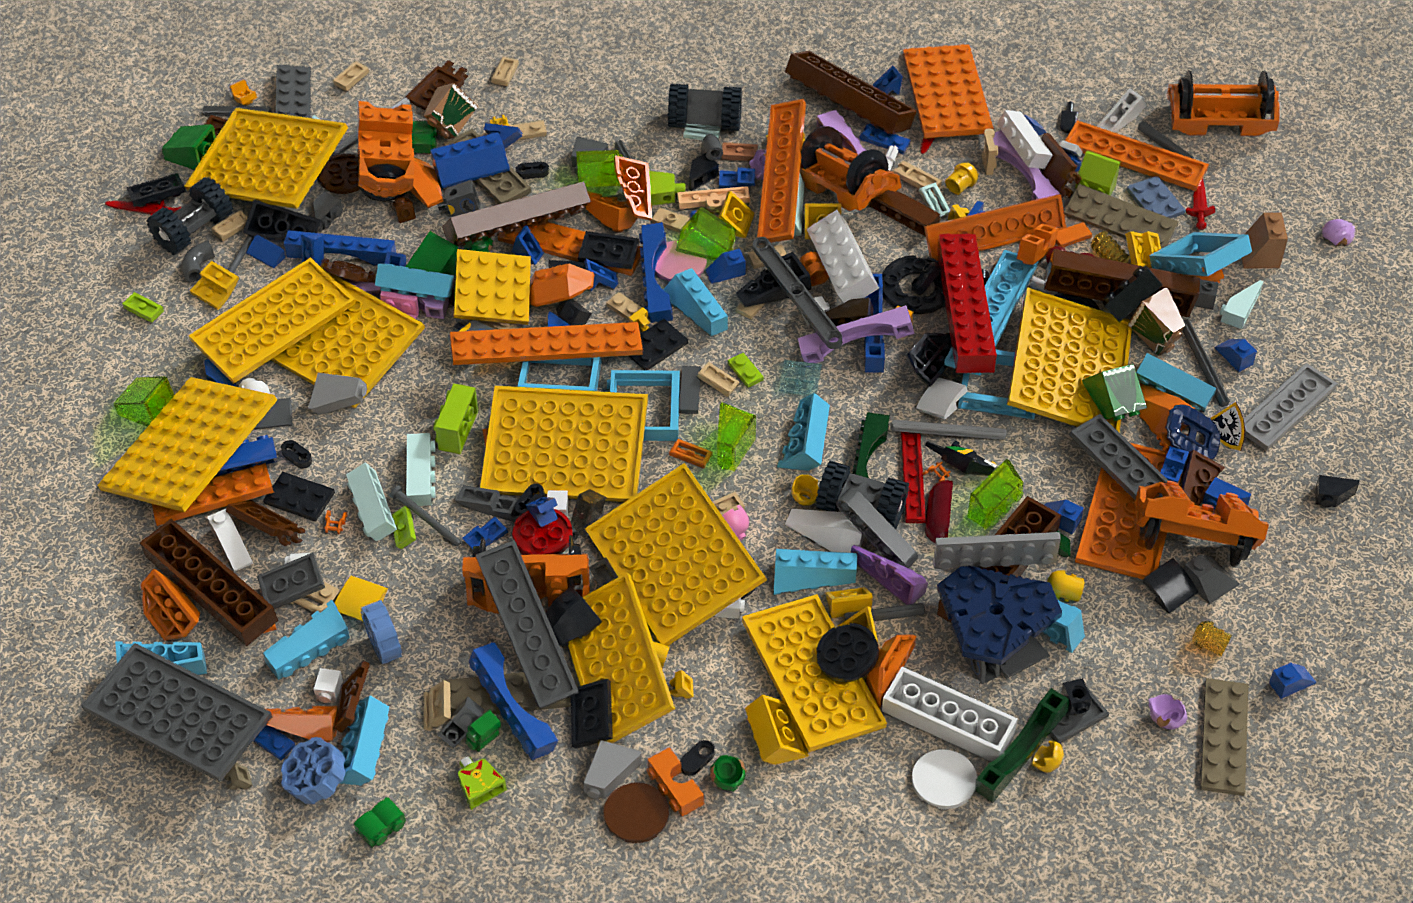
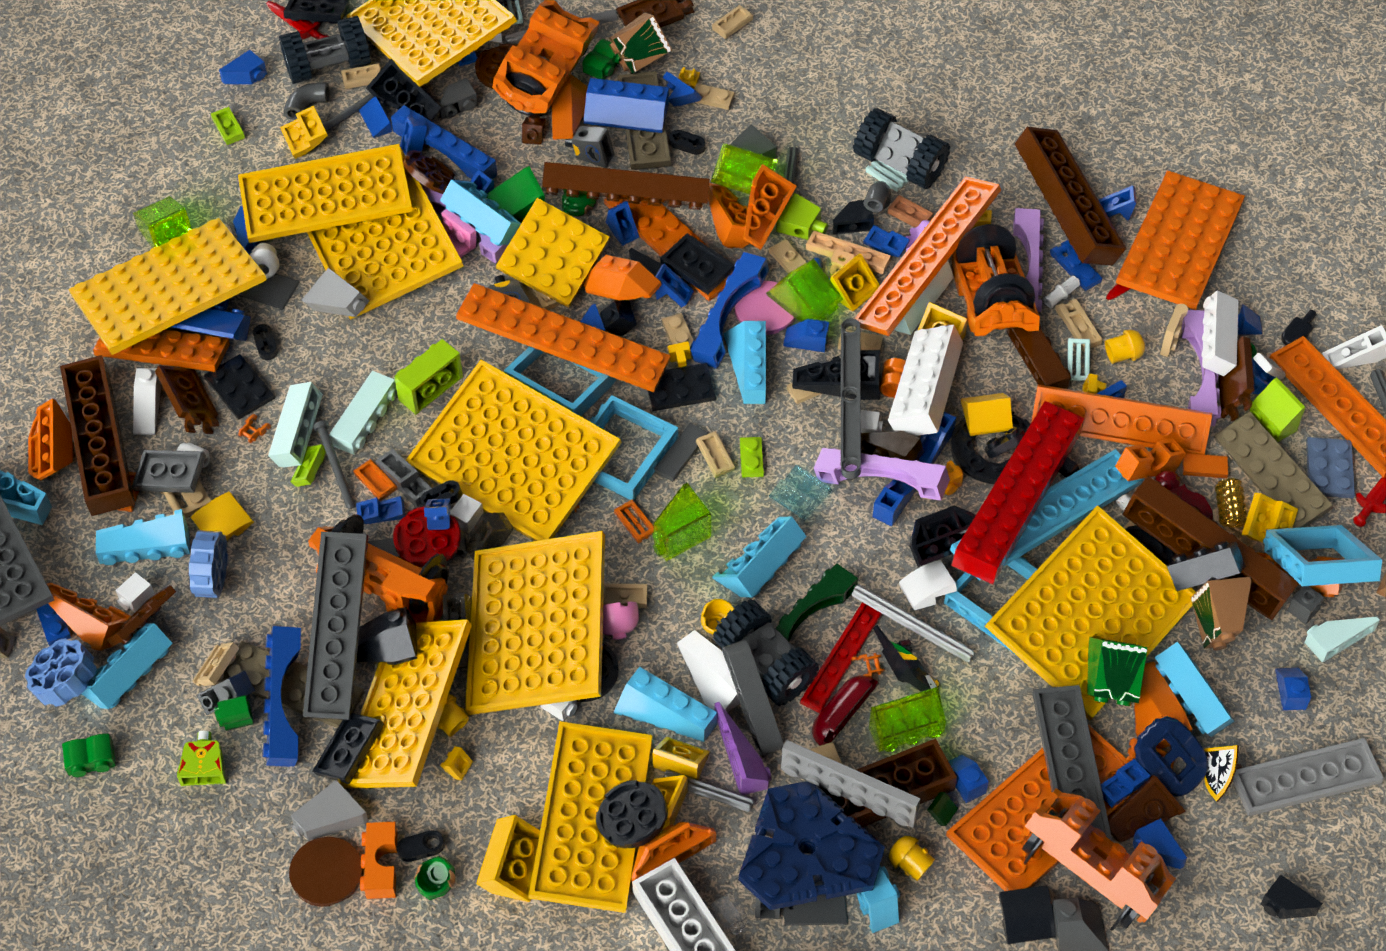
camera: 30 degrees right, 5 degrees up
(127, 259) = (244, 70): none -> blue slope
(463, 514) = (375, 480): none -> orange tile
(899, 263) = (987, 413): none -> yellow slope
(1205, 363) = (1249, 682): dark grey axle -> none

